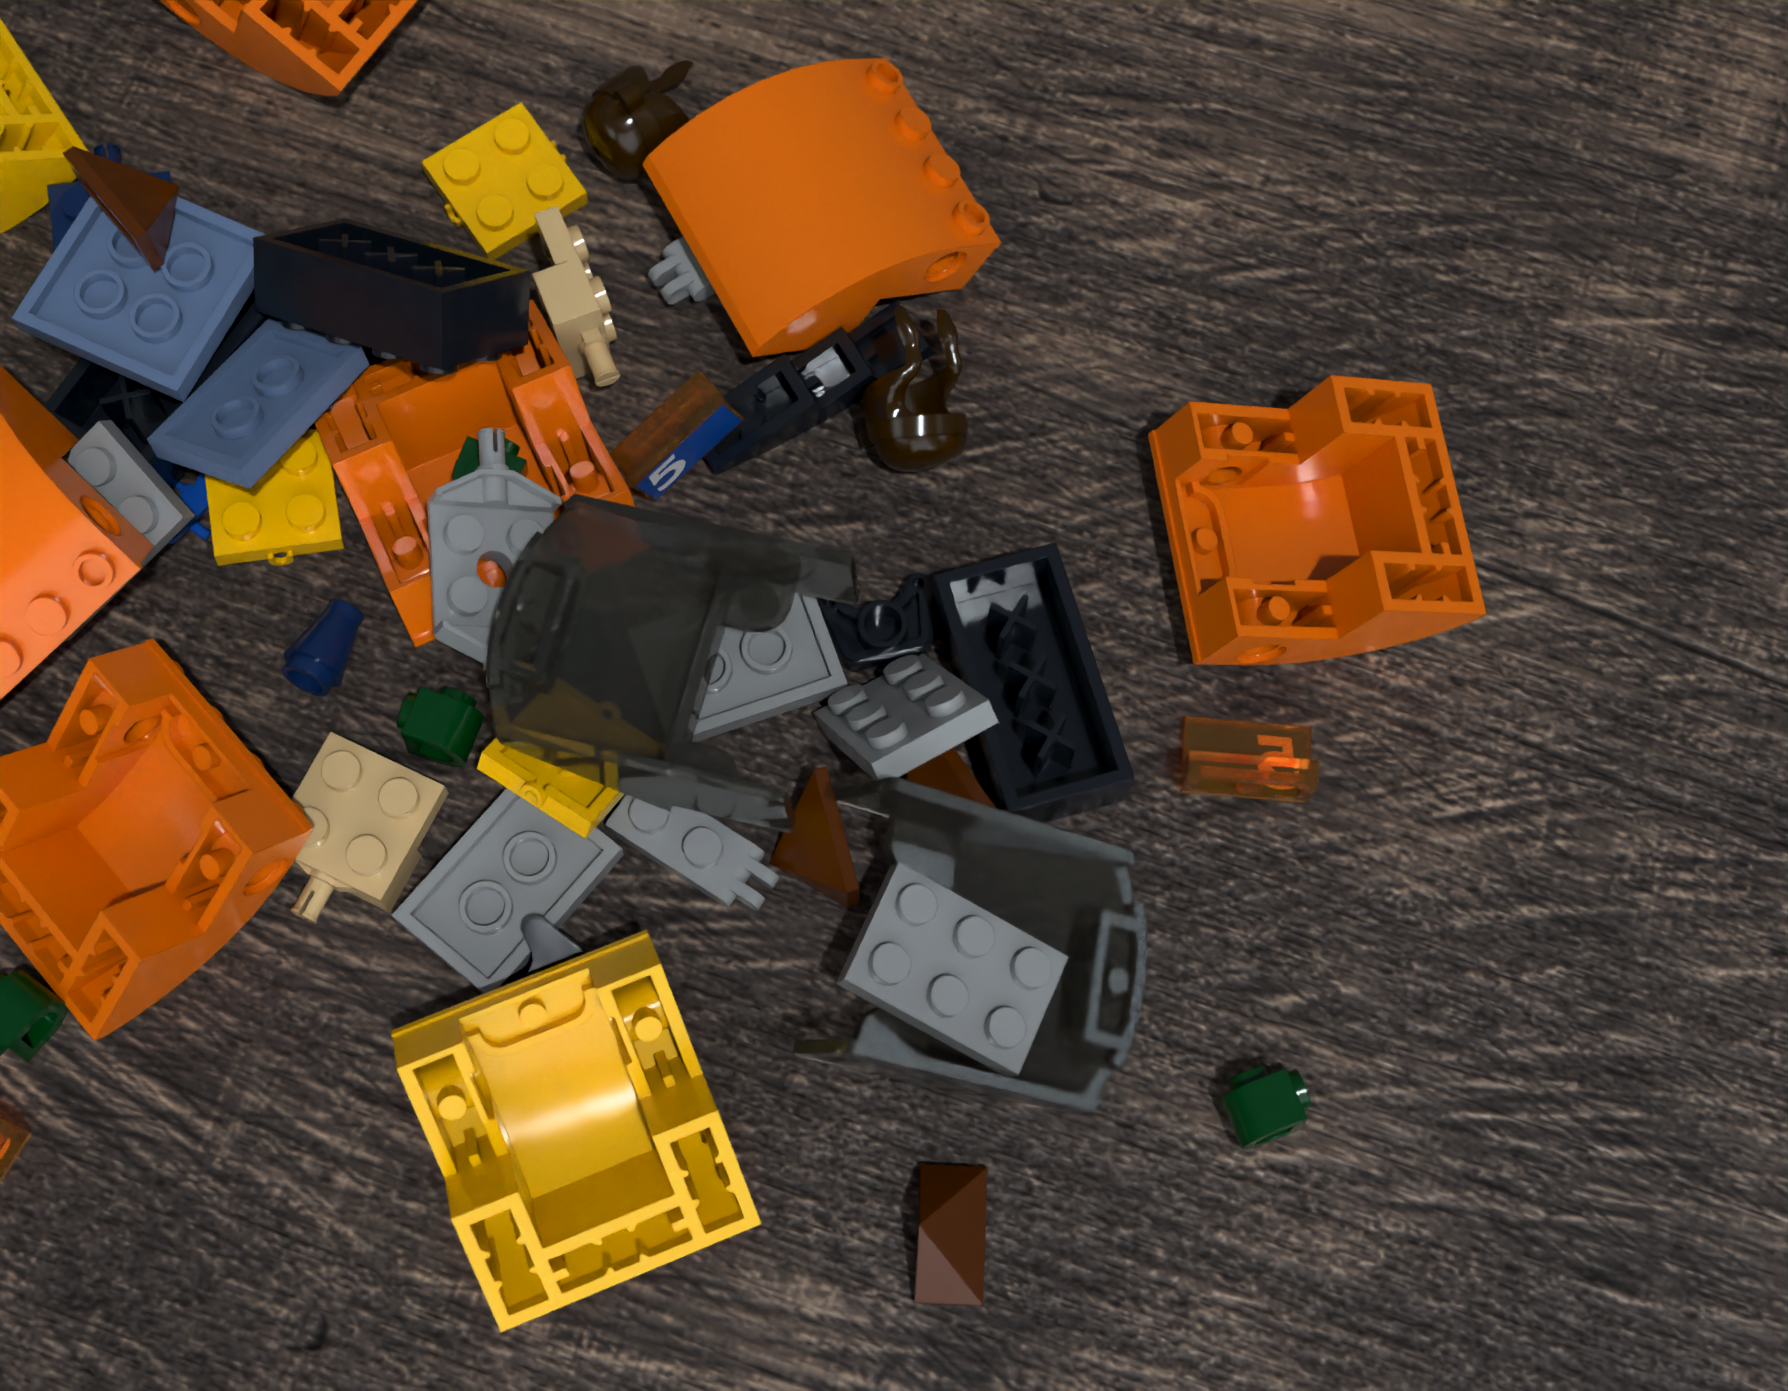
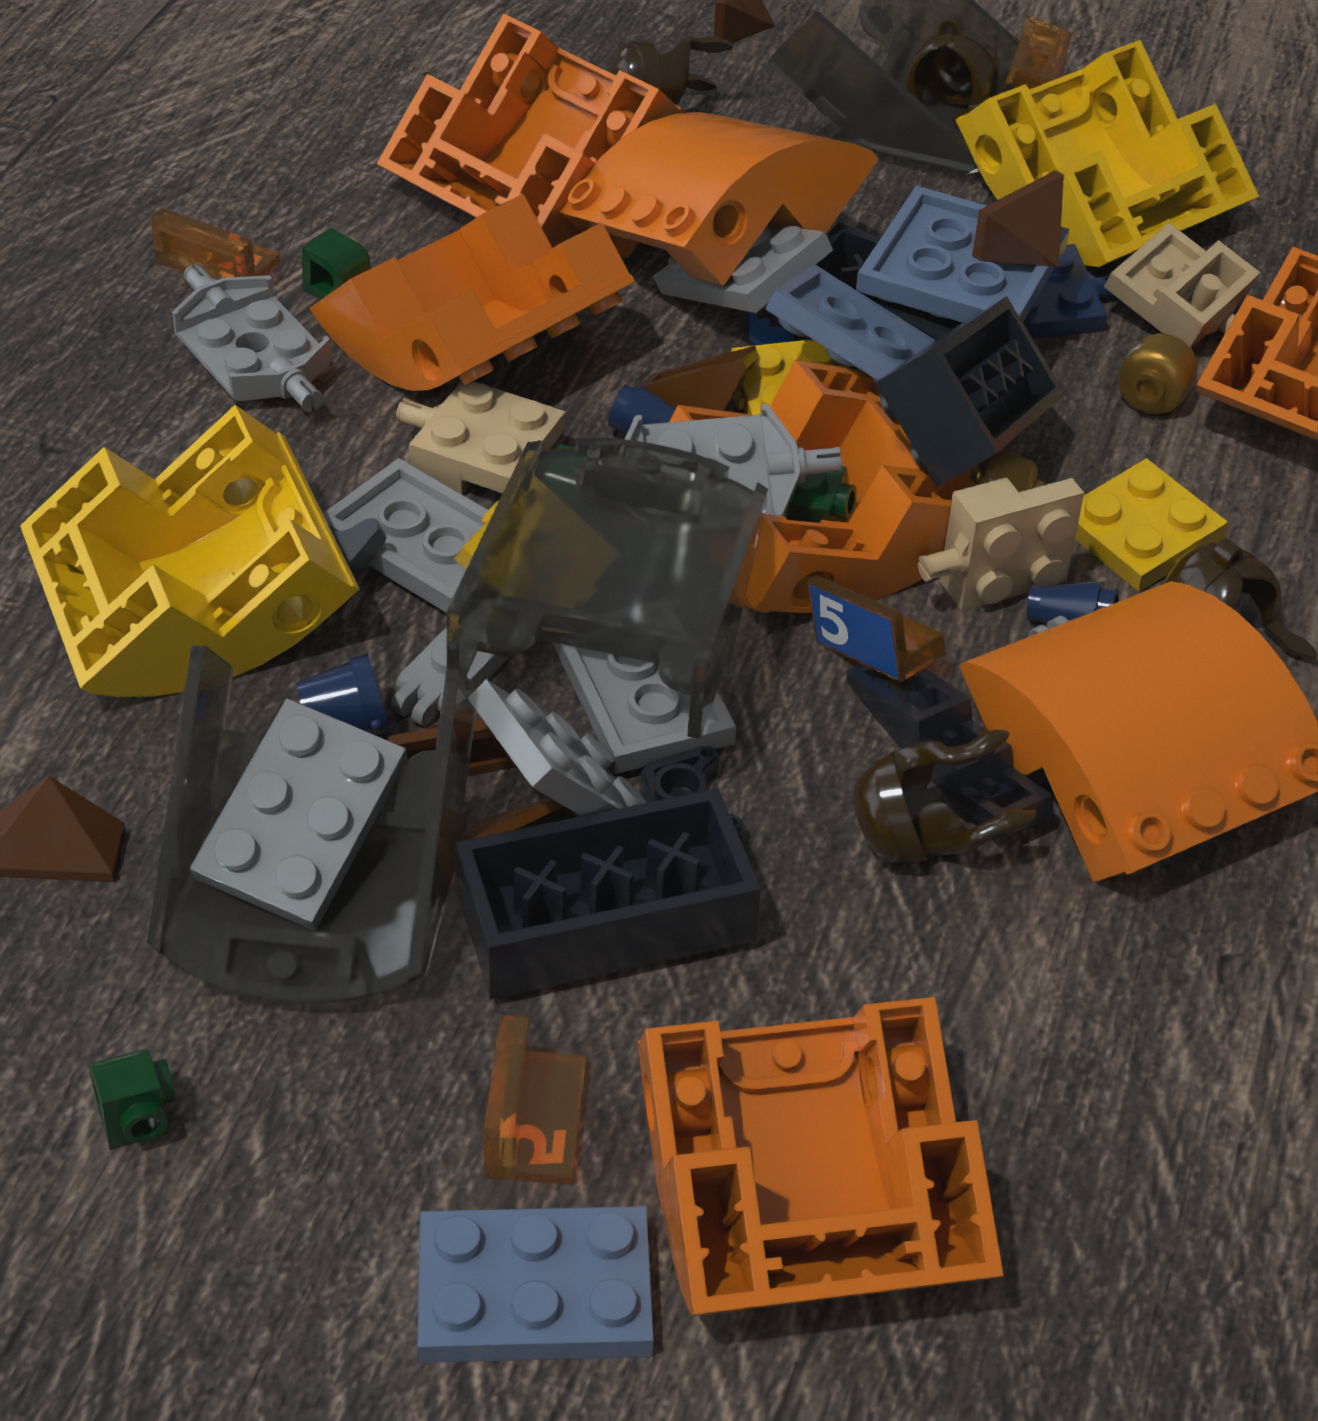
camera: 90 degrees right, 25 degrees down
(100, 1120) = (240, 315): none -> light grey plate
(140, 84) = (1182, 285): none -> tan plate
(272, 591) = (704, 383): none -> reddish brown slope
(279, 133) = (1157, 374): none -> pearl gold head
(633, 250) = (1068, 600): none -> dark blue cone
(774, 948) = (347, 695): none -> dark blue piece
(1416, 757) = (534, 1284): none -> sand blue plate

